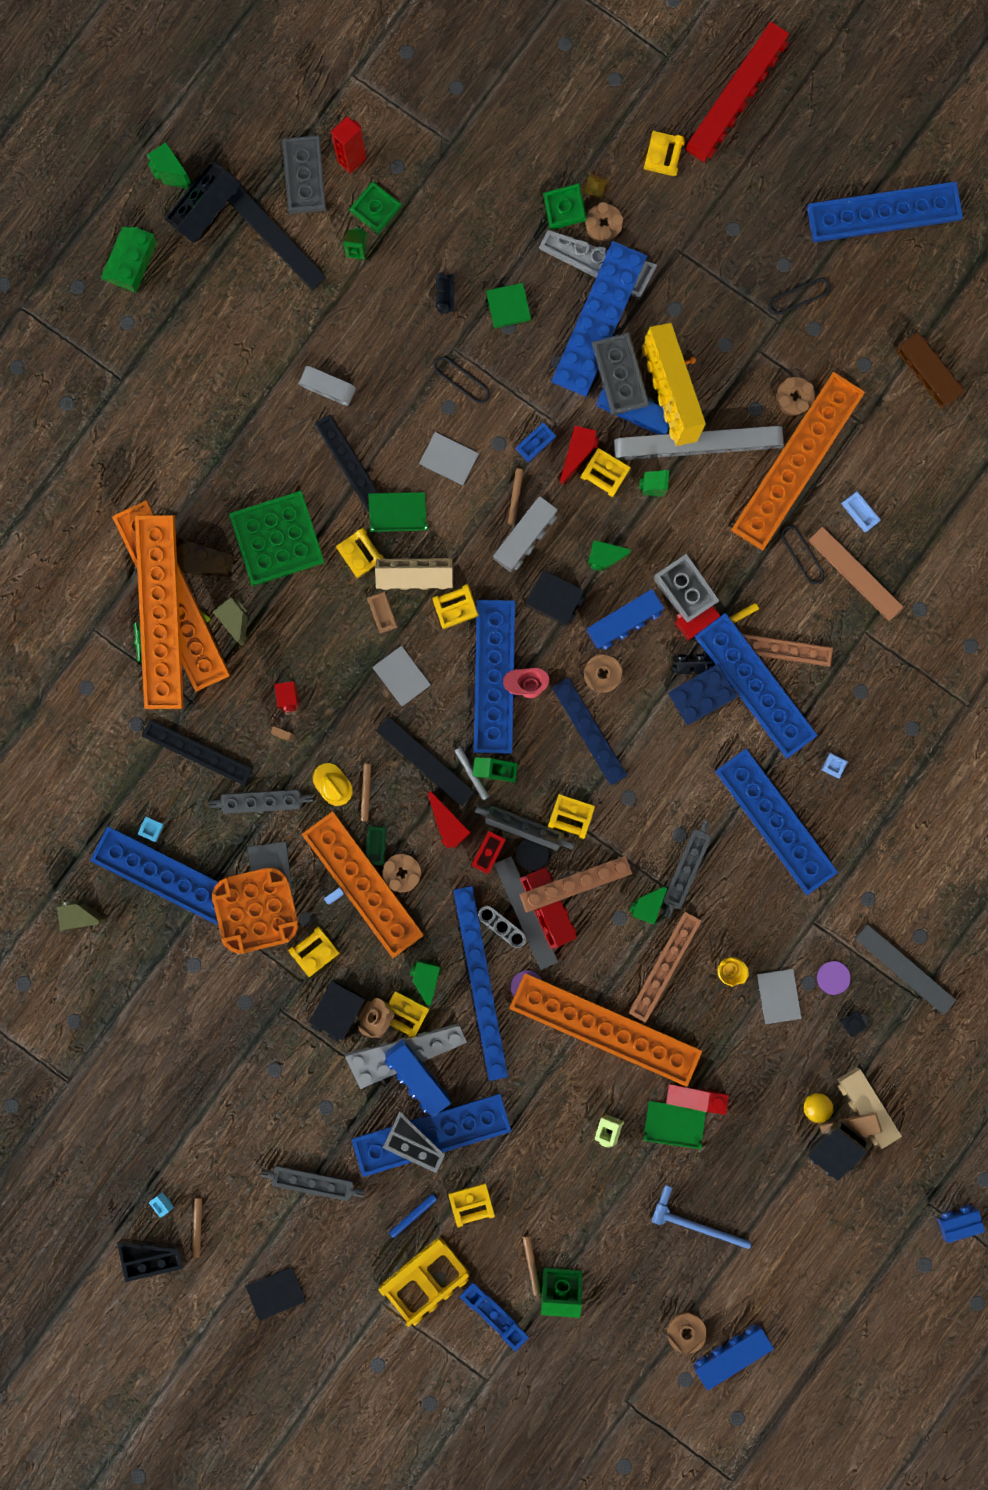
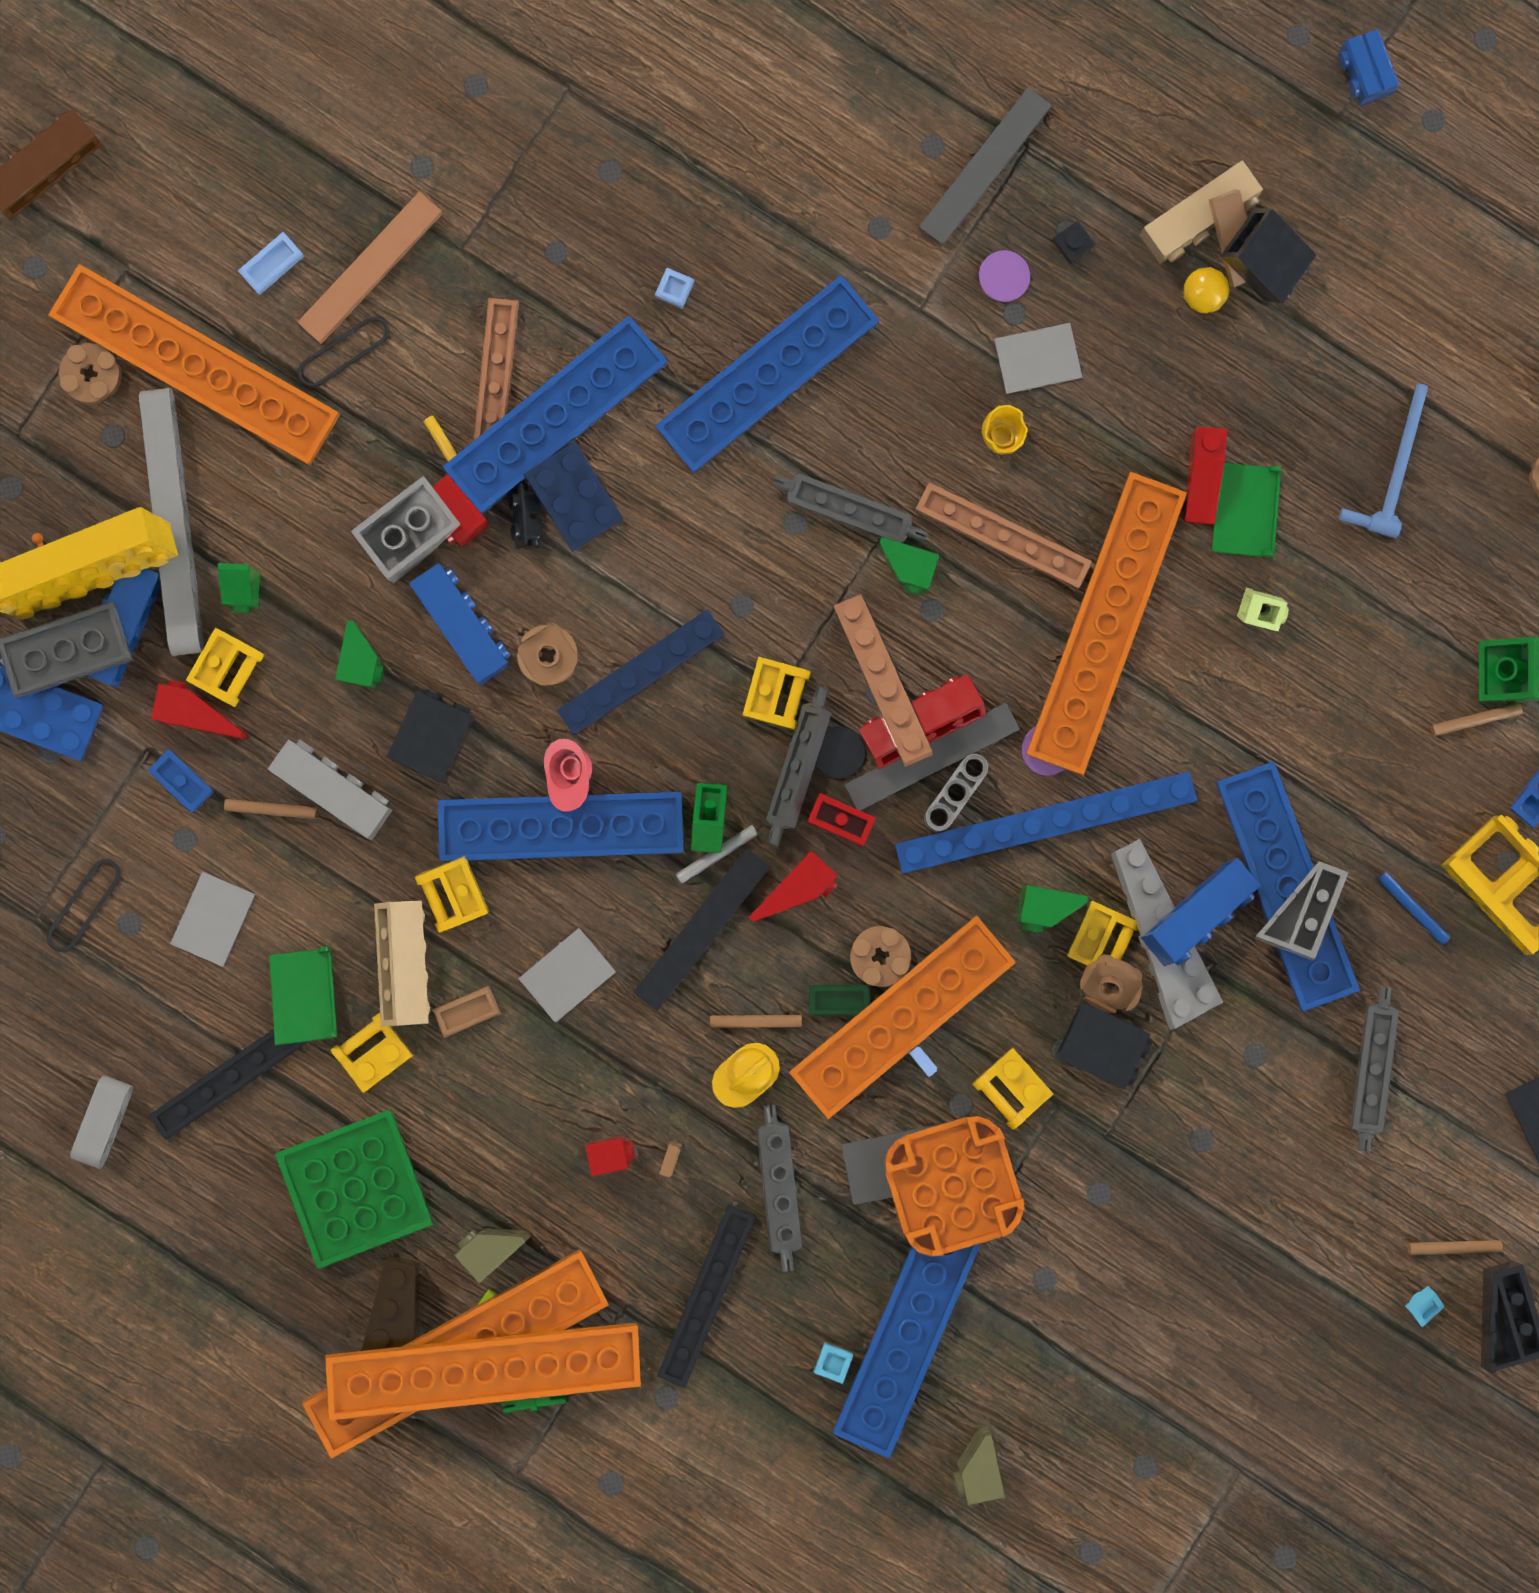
camera: 95 degrees left, 0 degrees up
(468, 1199) = (1381, 819): yellow plate -> none

